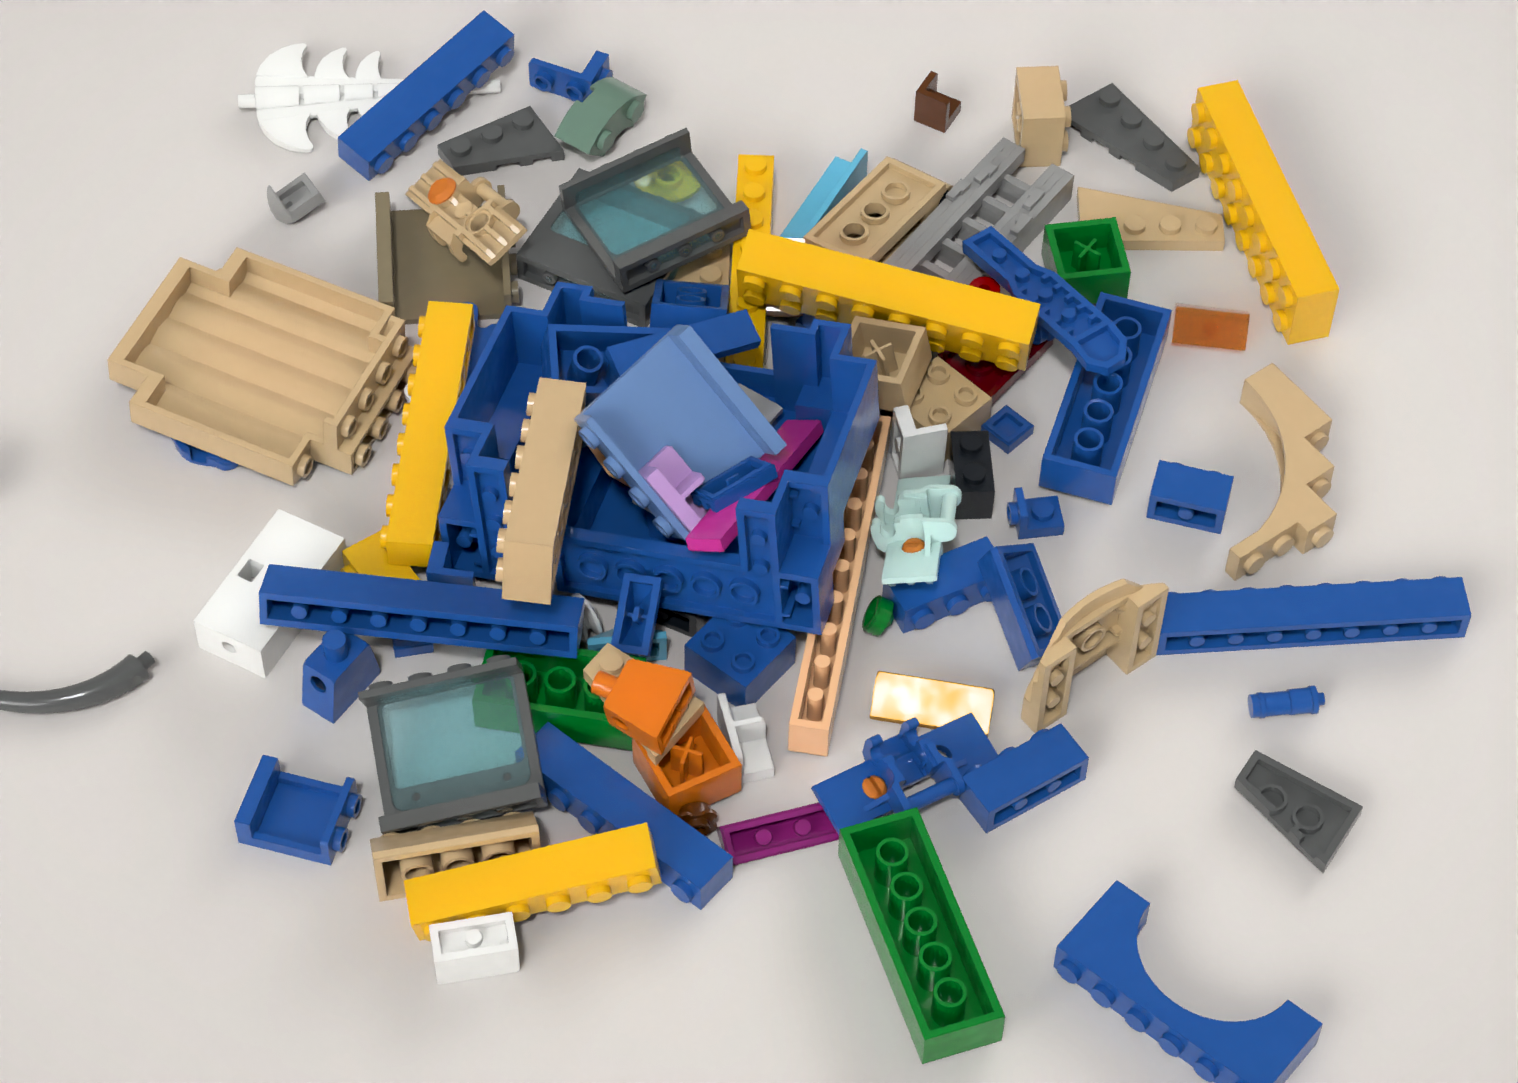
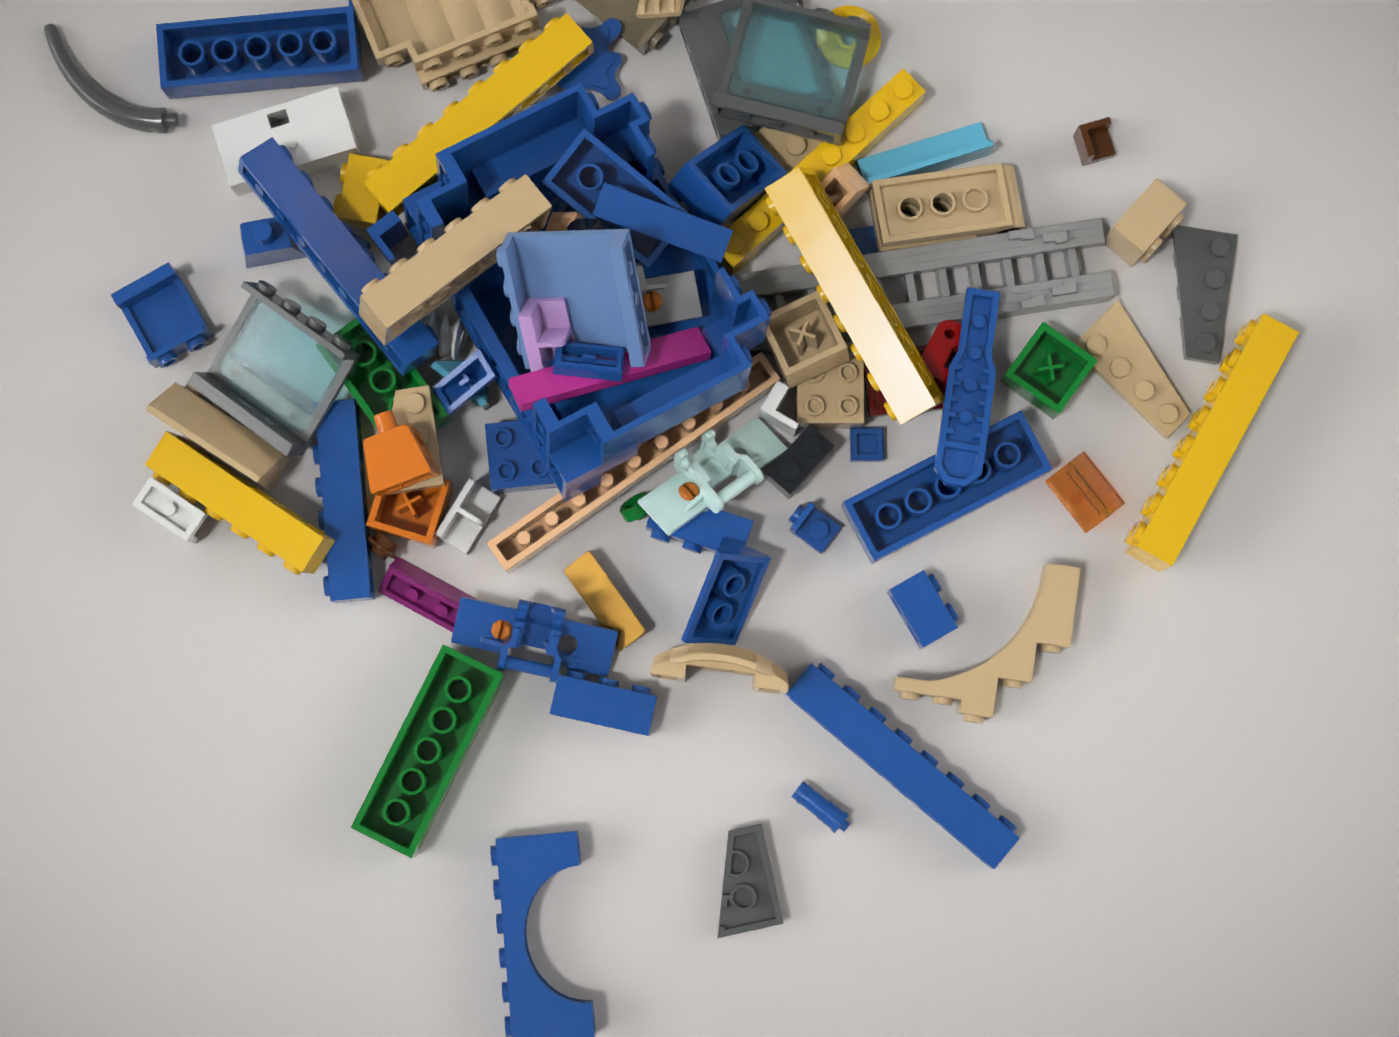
camera: 45 degrees right, 30 degrees up
(176, 545) = (259, 52): none -> blue brick

